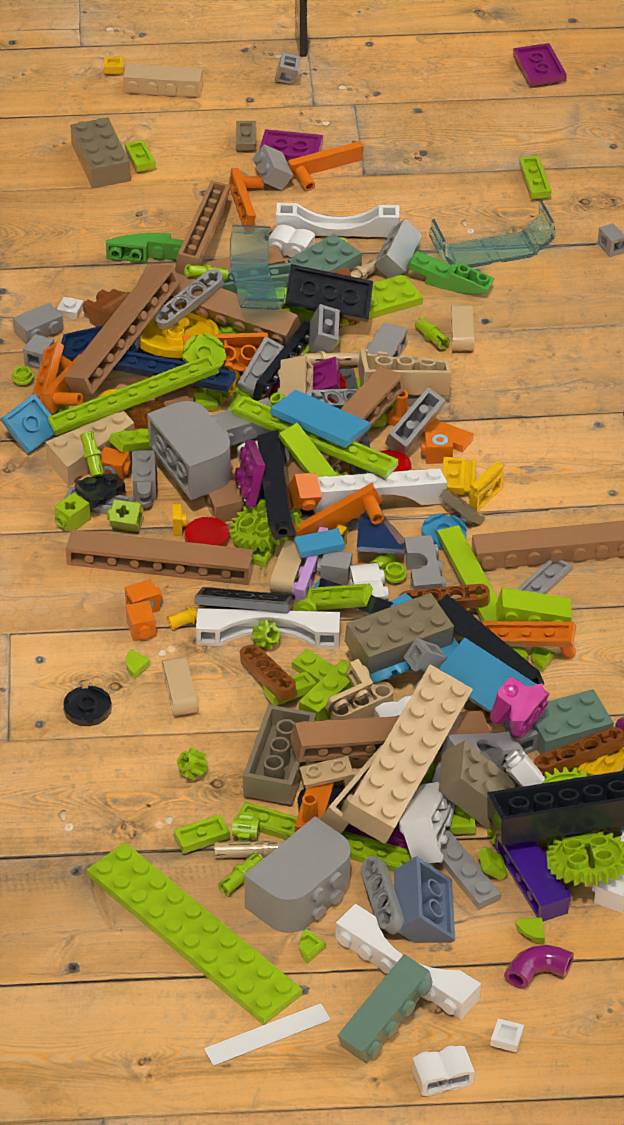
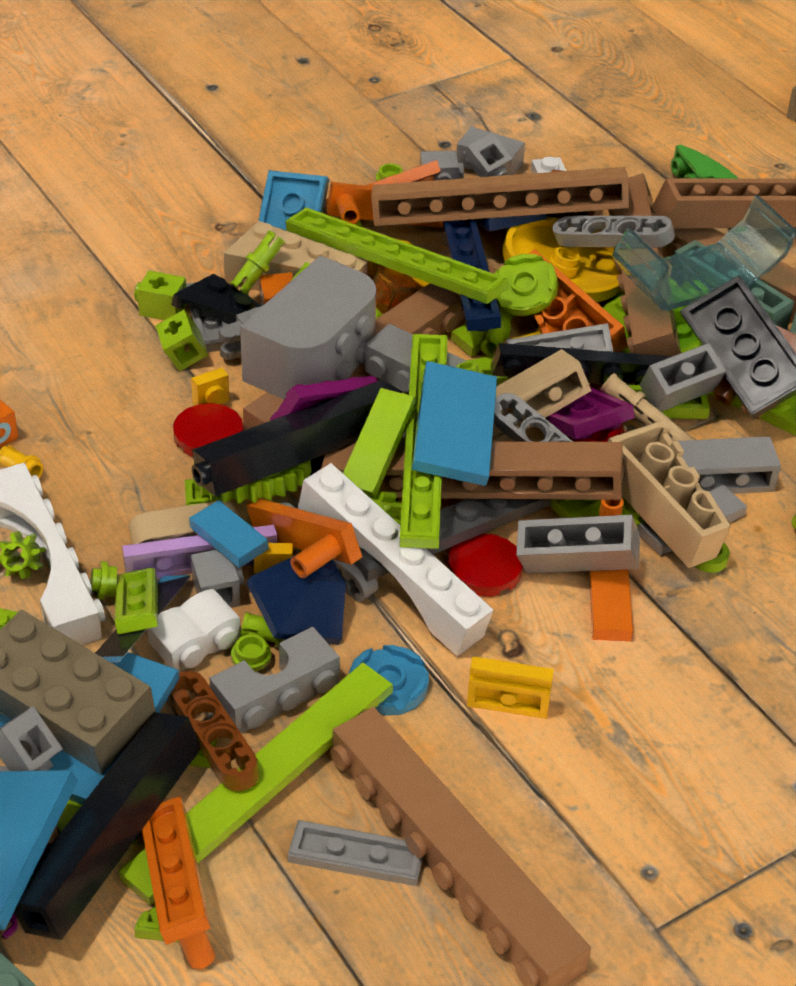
camera: 60 degrees right, 0 degrees up
(60, 322) = (488, 157): none -> light grey brick
(143, 592) = (35, 411): orange brick -> none
(160, 557) = (129, 406): medium nougat brick -> none
(196, 271) = (683, 232): lime pin -> none
(244, 599) = (78, 506): black tile -> none
(305, 491) = (294, 464): orange brick -> none
(437, 446) = (563, 600): orange brick -> none
(459, 474) = (524, 642): yellow plate -> none
(467, 512) = (447, 678): dark tan plate -> none
(532, 606) = (246, 860): lime brick -> none

